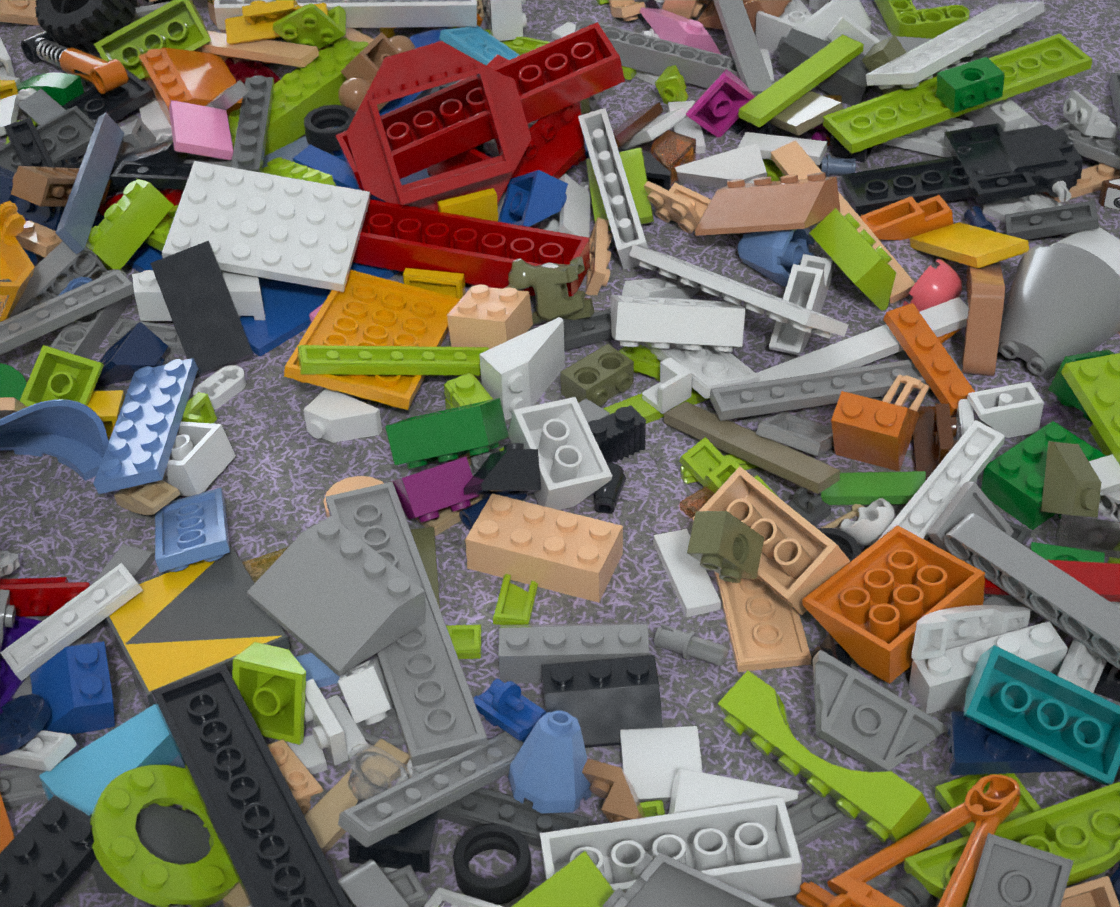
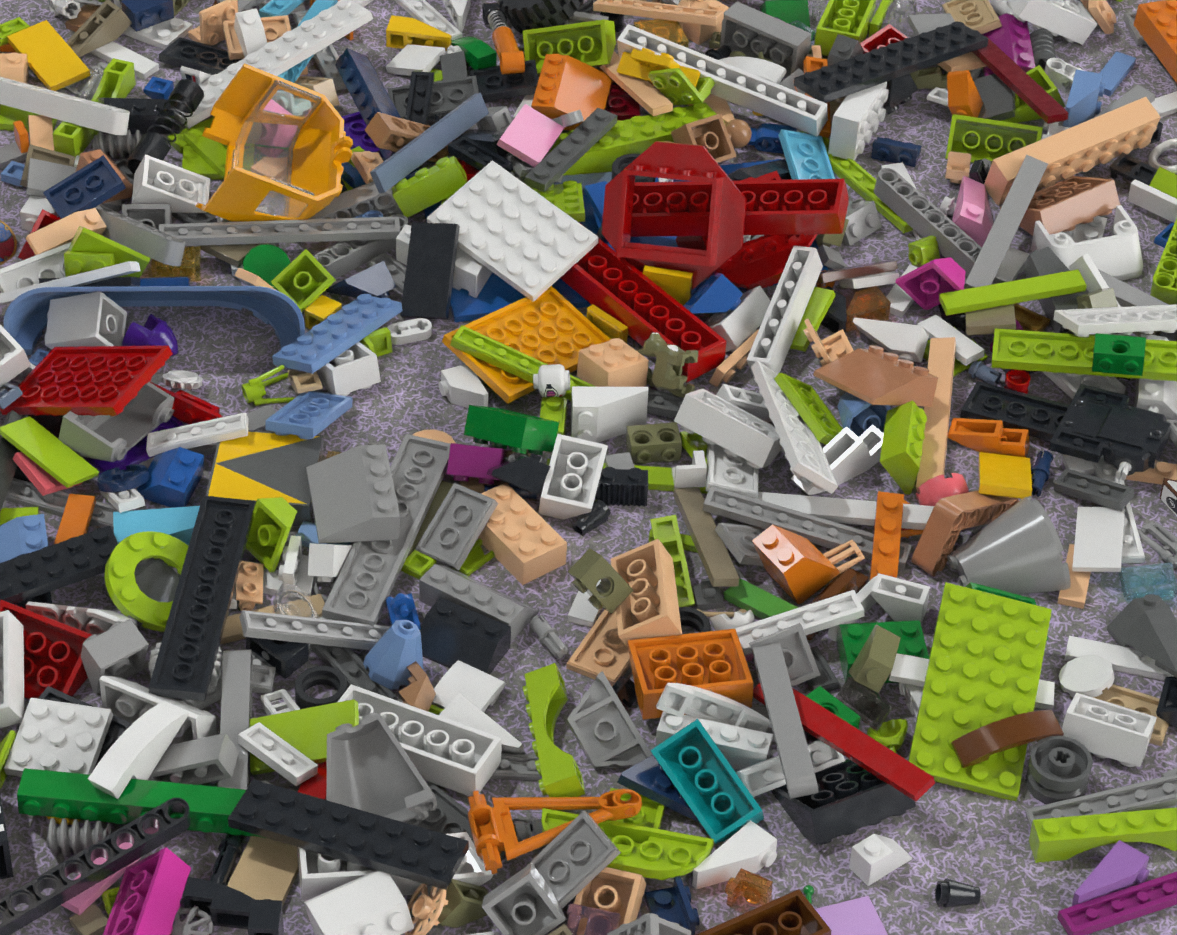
camera: 30 degrees right, 0 degrees up
(93, 534) = (255, 388): none -> lime plant
(449, 358) = (552, 380): none -> white head
(480, 571) = (456, 526): none -> light grey tile
(553, 15) = (895, 151): none -> dark blue bracket
(726, 270) = (810, 408): none -> lime tile
(879, 157) = (1017, 380): none -> red wheel

